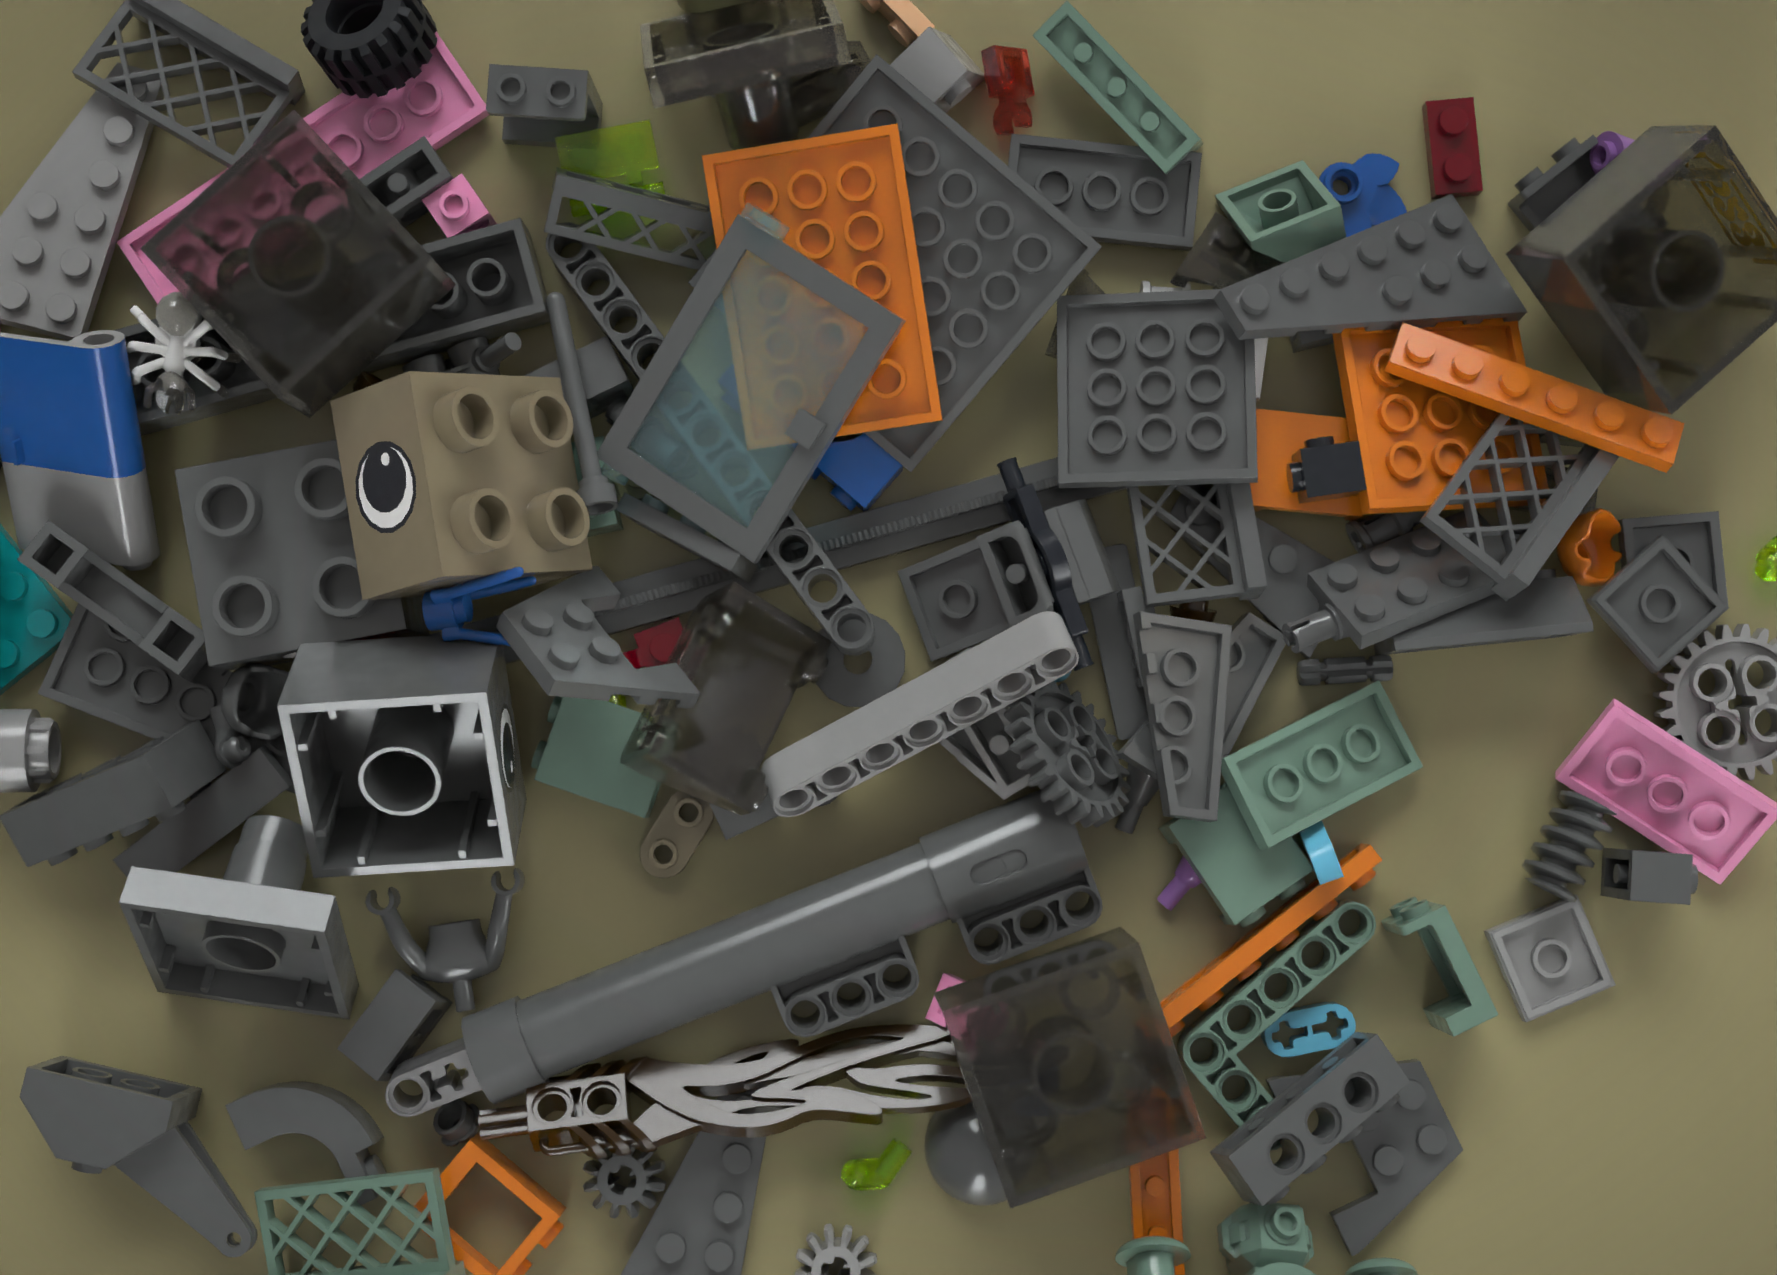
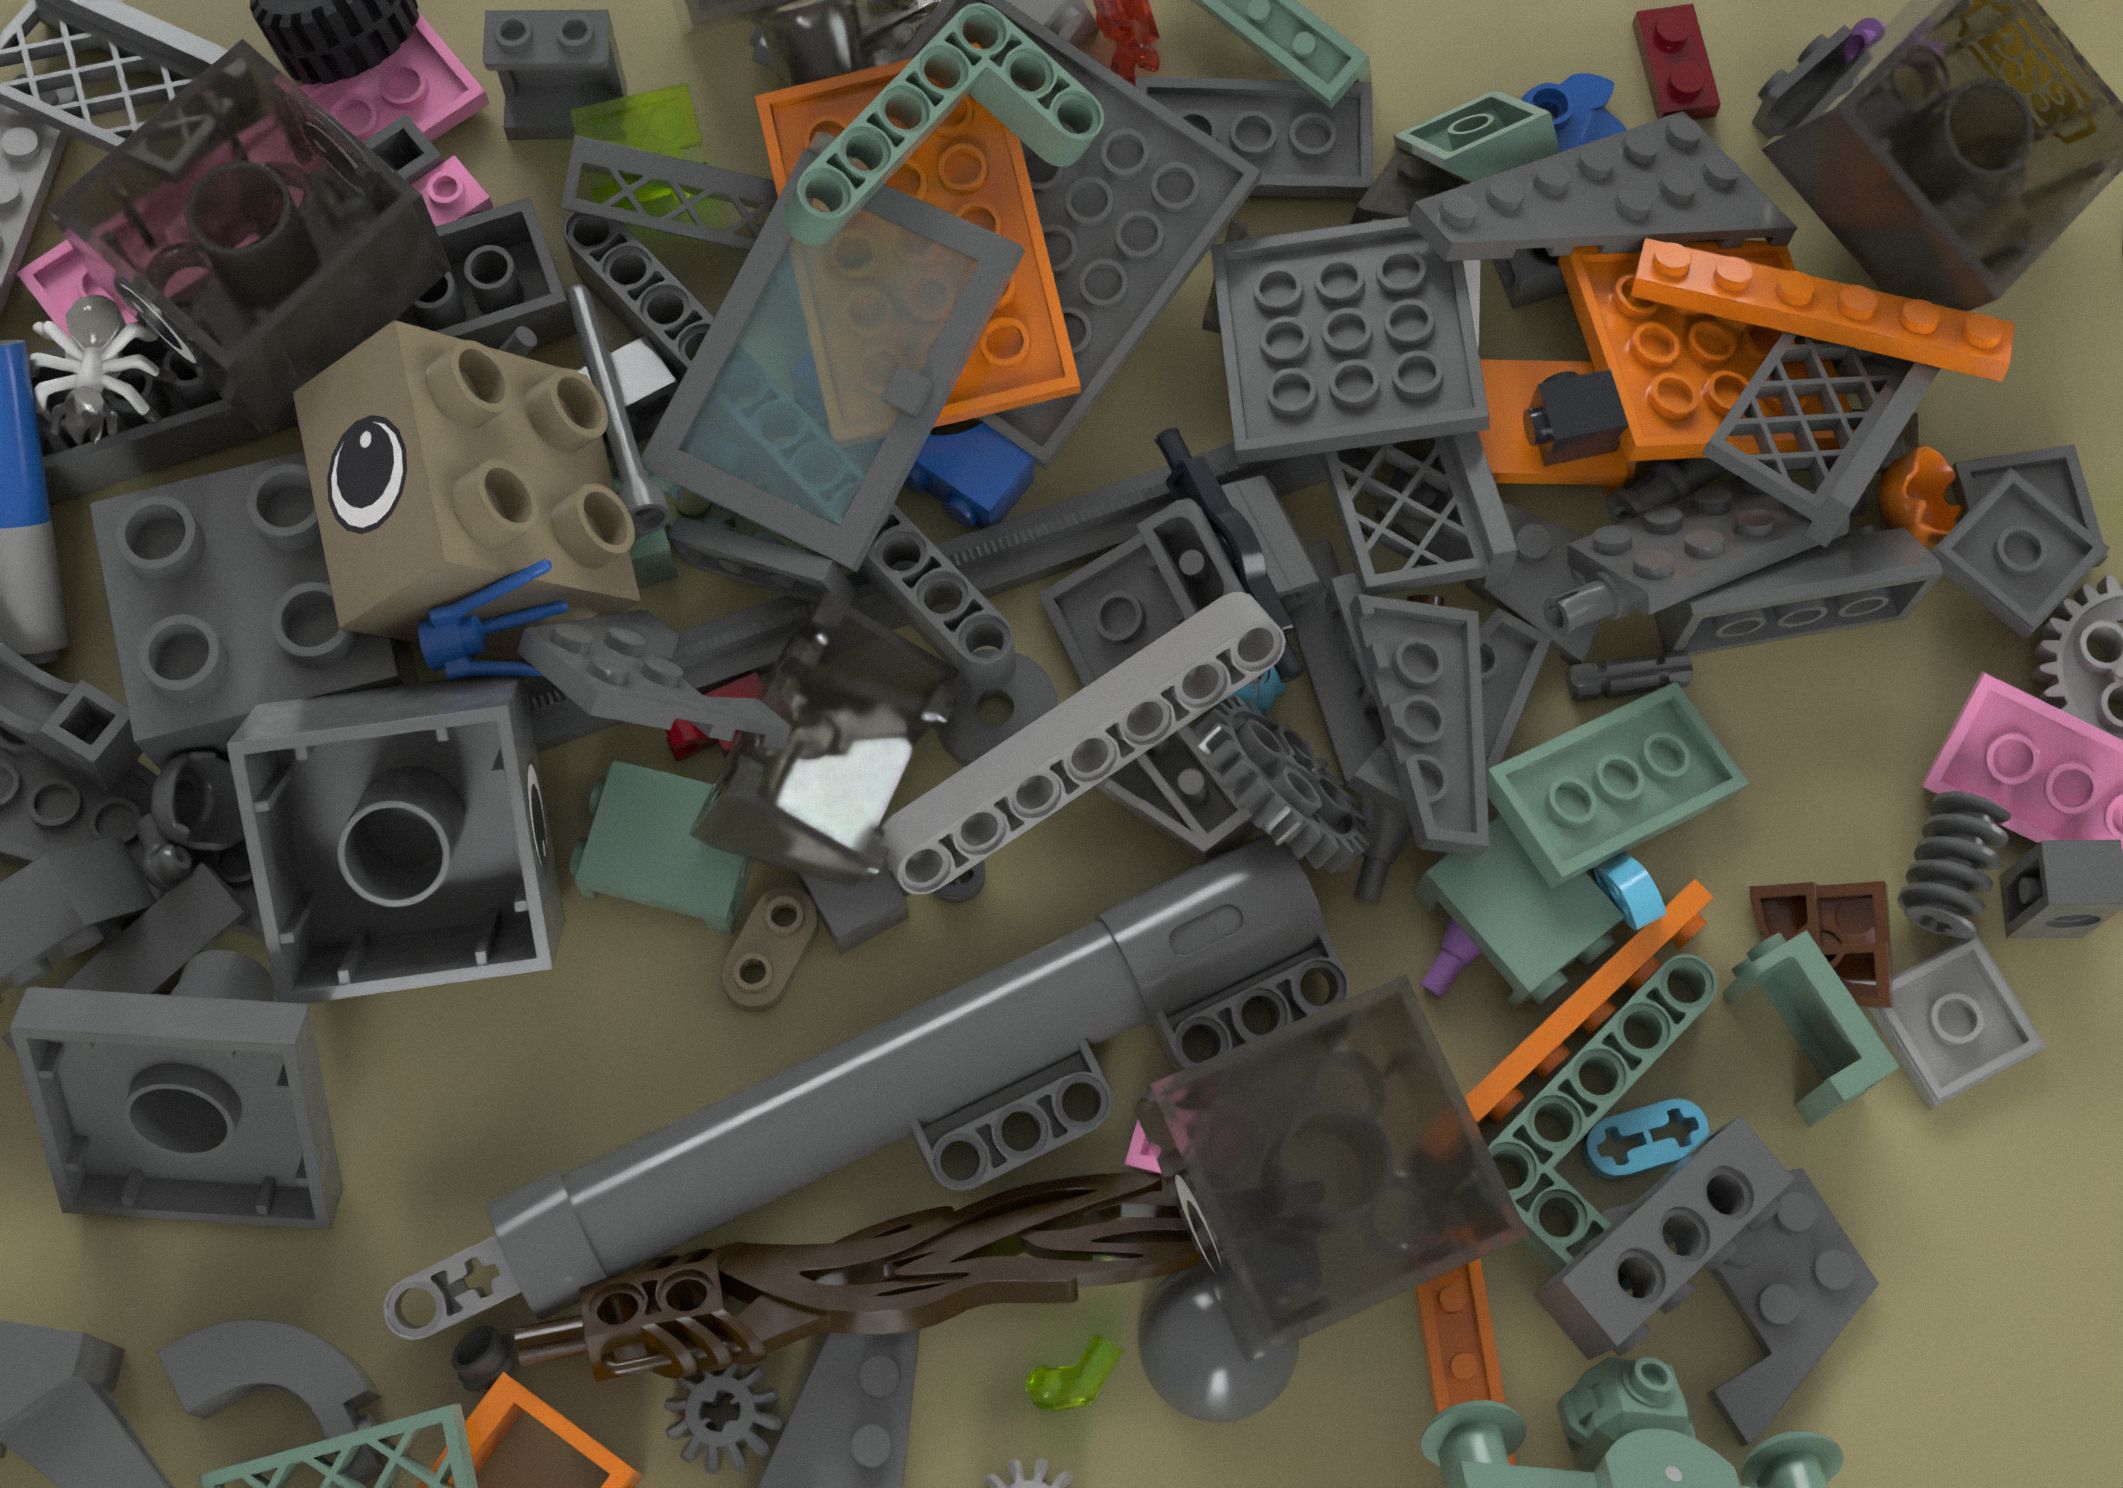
camera: 10 degrees left, 15 degrees down
(394, 1025) = (393, 1228): dark grey hinge -> none
(457, 949) = (477, 1118): dark grey piece -> none
(836, 196) = (923, 107): none -> sand green beam
(1473, 887) = (1845, 922): none -> reddish brown brick

